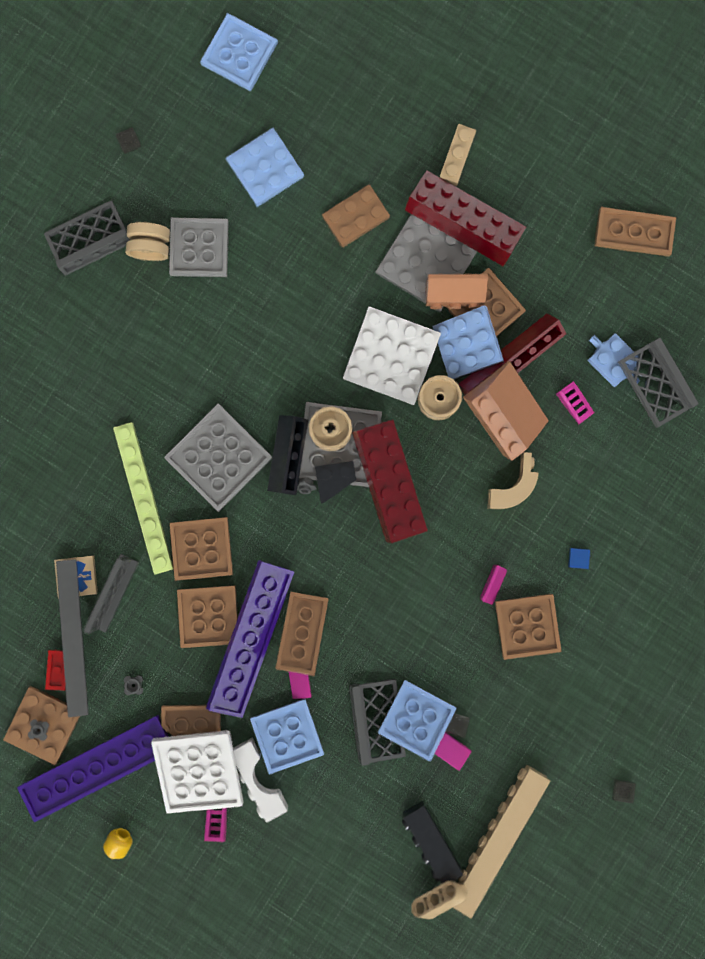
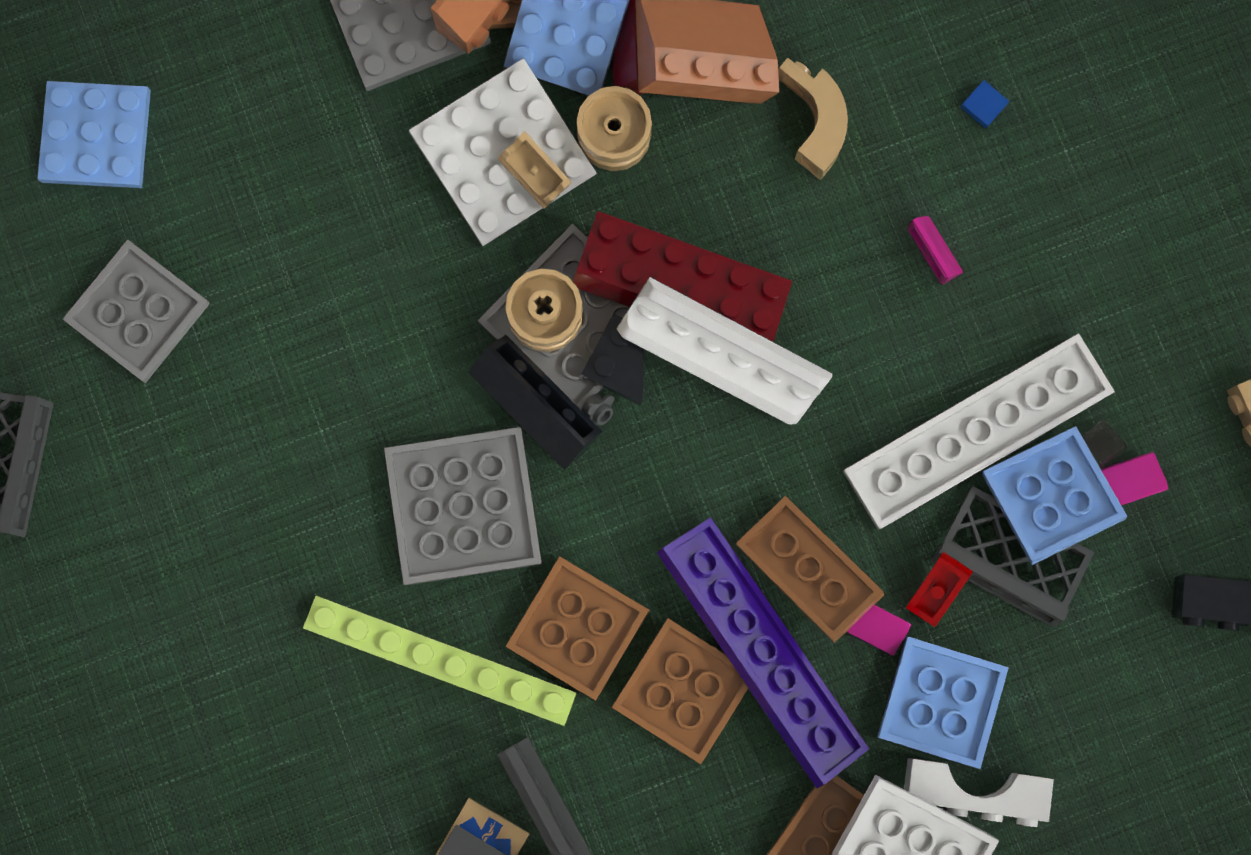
camera: 55 degrees left, 5 degrees down
(147, 241) = (72, 375): tan wheel -> none
(336, 698) = (939, 589): none -> red plate
(355, 216) = (264, 59): medium nougat plate -> none
(370, 523) = (722, 352): none -> white plate
(391, 376) = (534, 170): none -> tan hinge
(423, 665) = (978, 431): none -> white plate
(528, 626) = (1030, 244): medium nougat plate -> none

